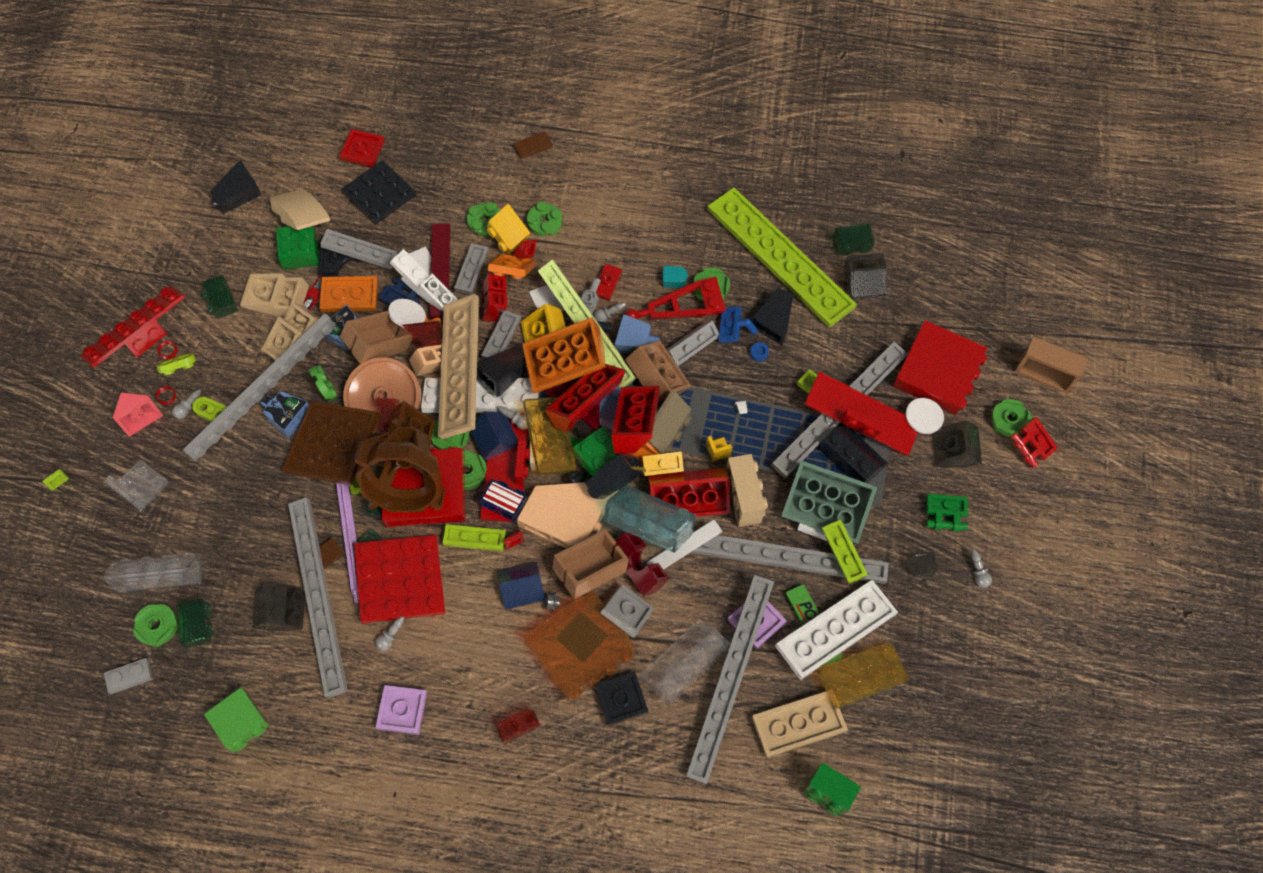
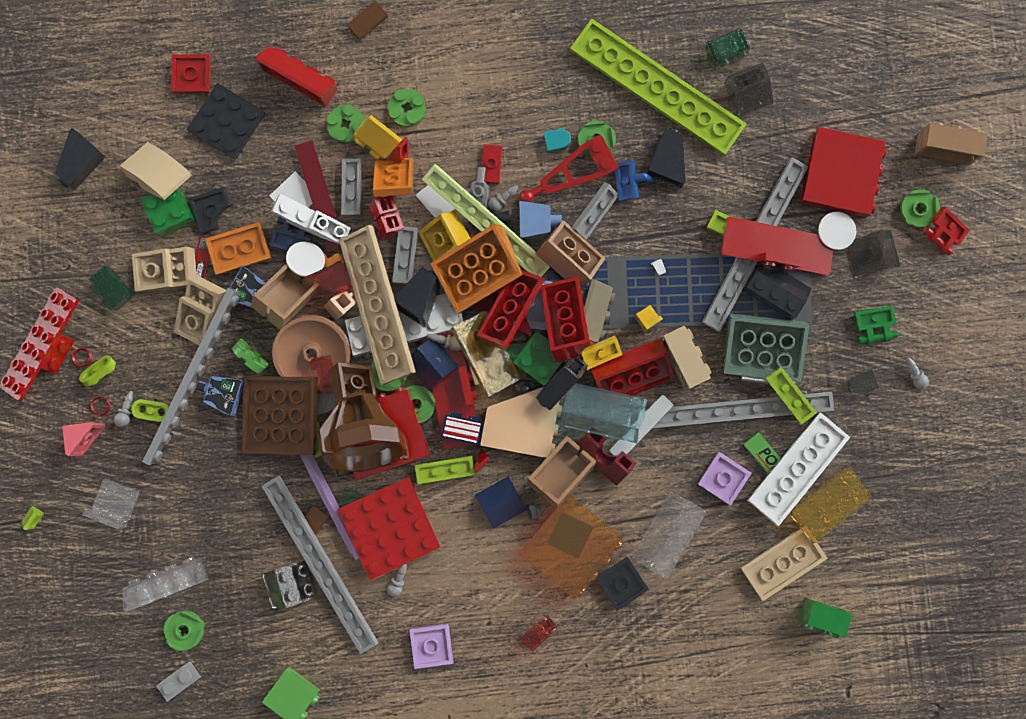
camera: 10 degrees left, 20 degrees up
(194, 623) = (219, 620): clear green brick -> none
(358, 249) = (230, 197): light grey plate -> none
(454, 169) = (296, 75): none -> red slope
(627, 610) = (606, 503): light grey tile -> none
(730, 680) = (714, 540): light grey plate -> none
(759, 352) = (661, 201): blue tile -> none

